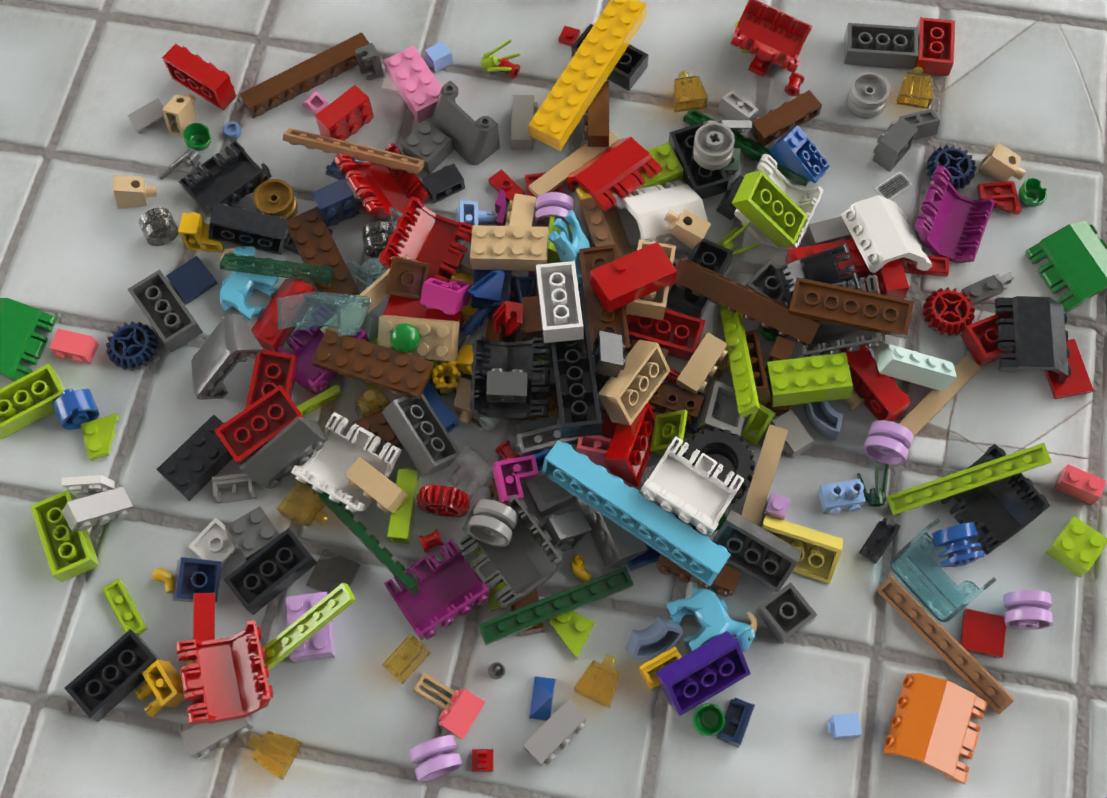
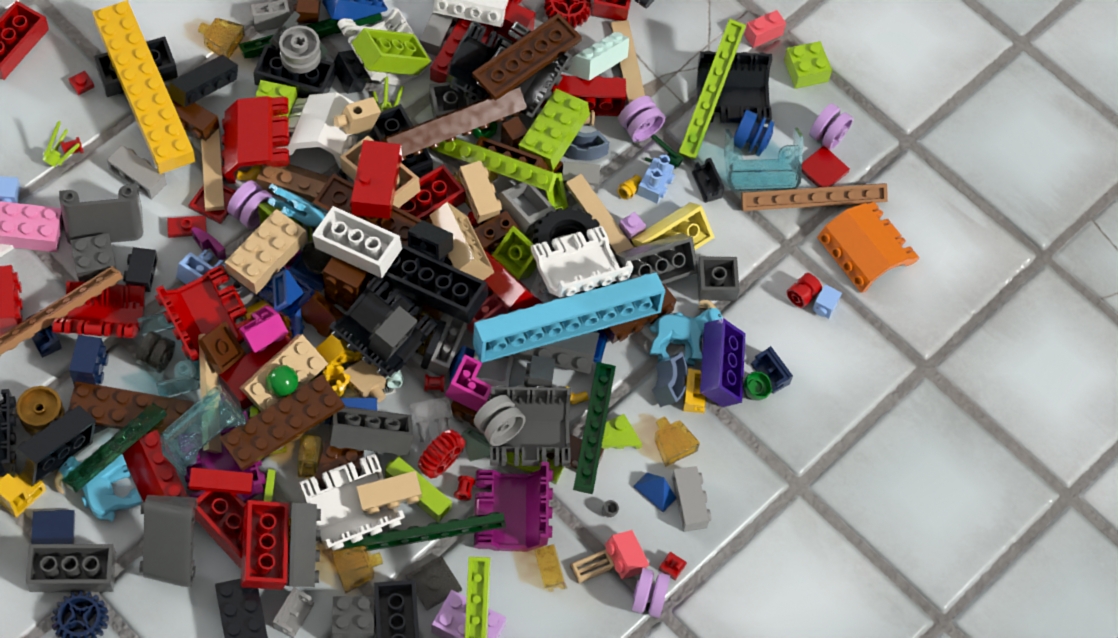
camera: 65 degrees left, 5 degrees down
(290, 356) = (221, 481): none -> red tile
(510, 316) = (329, 294): red hinge -> none
(521, 210) = (229, 228): tan brick -> none
(633, 106) = (203, 80): none -> black brick
(815, 479) = (628, 188): none -> yellow cone
(838, 698) = (804, 290): none -> red wheel

